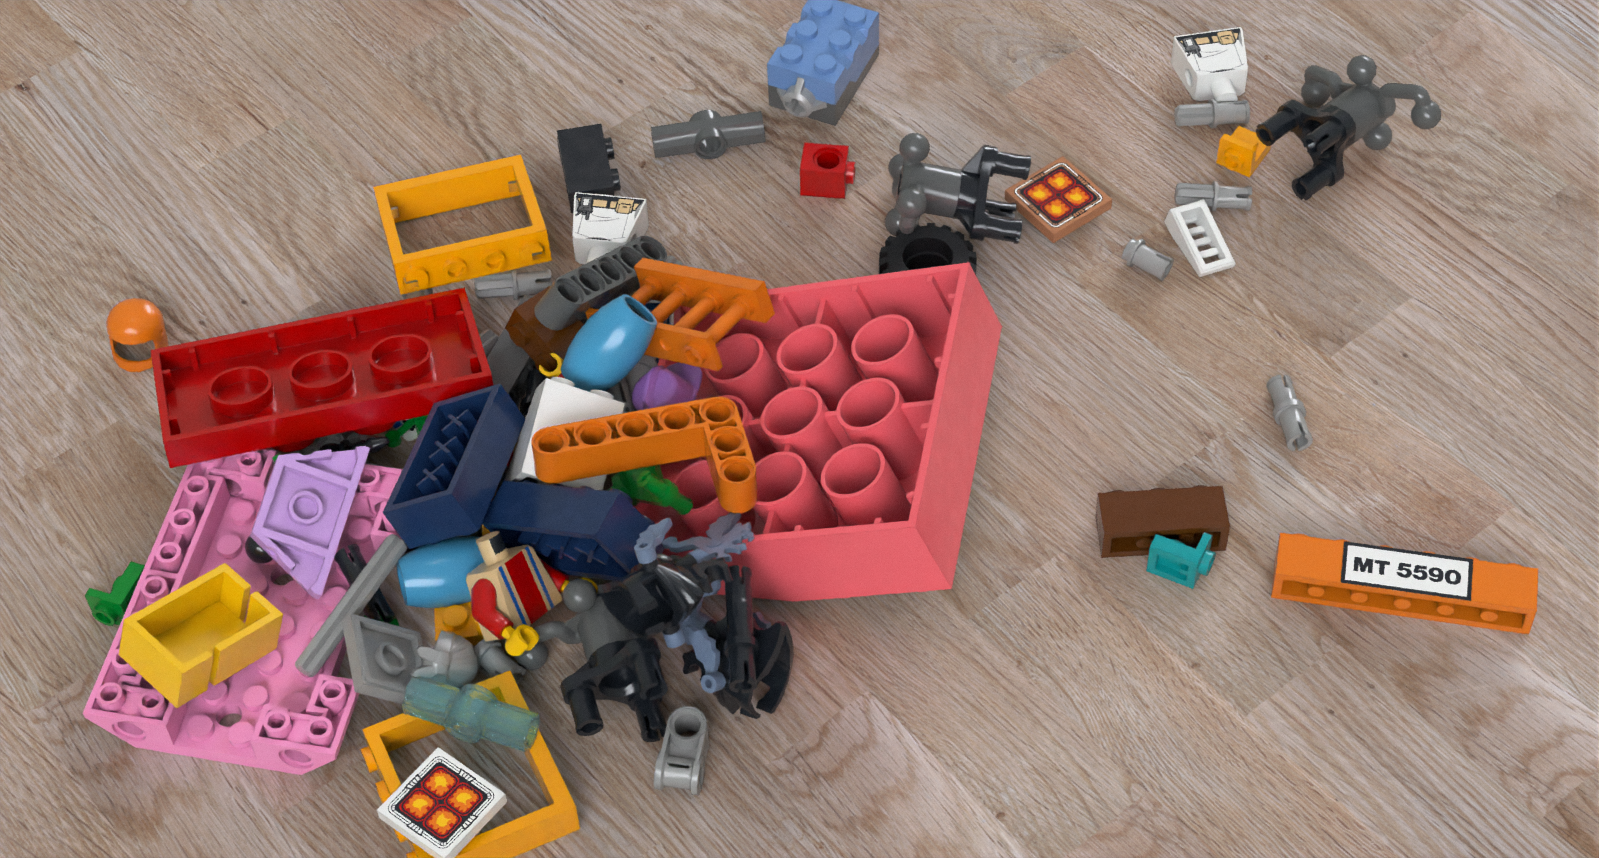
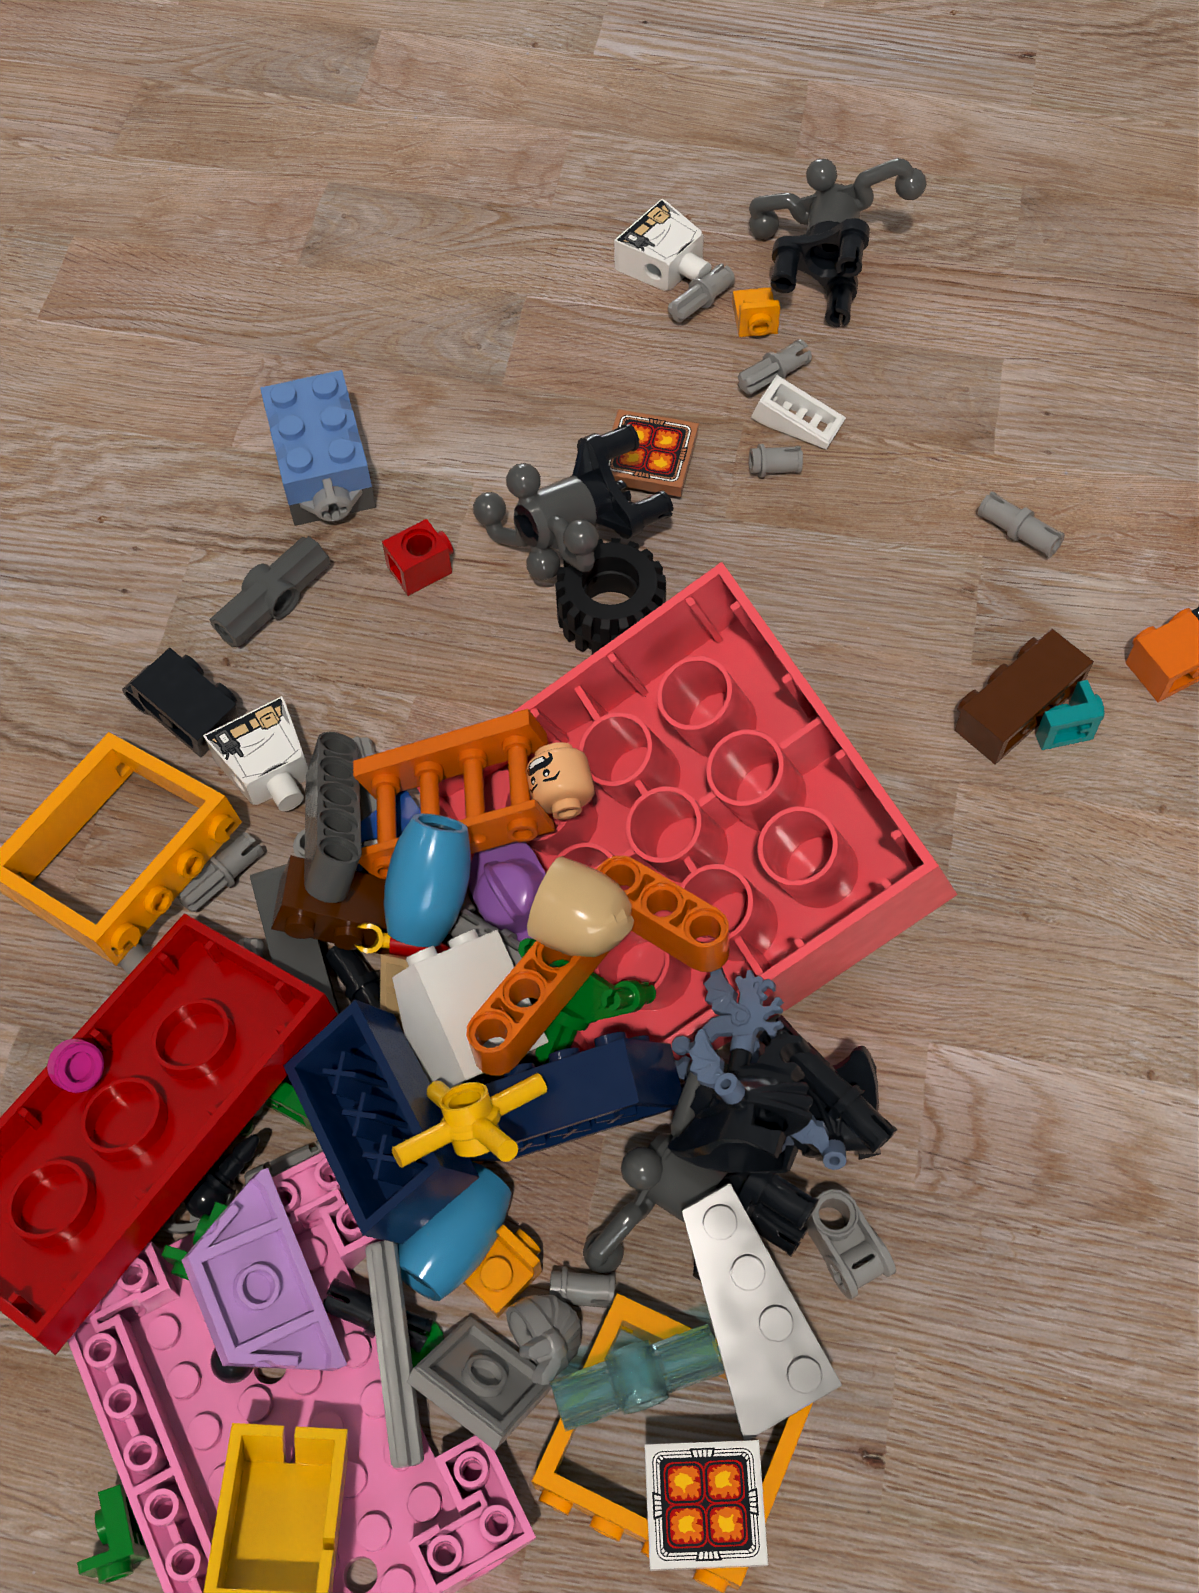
camera: 40 degrees left, 10 degrees up
(321, 327) = (75, 1065): none -> dark pink tile
(493, 481) = (470, 1120): none -> yellow bar
(512, 592) = (547, 1211): torso -> none
(567, 733) = (760, 1331): none -> wing
(658, 398) = (579, 910): none -> tan piece
(747, 341) = (560, 780): none -> light nougat head

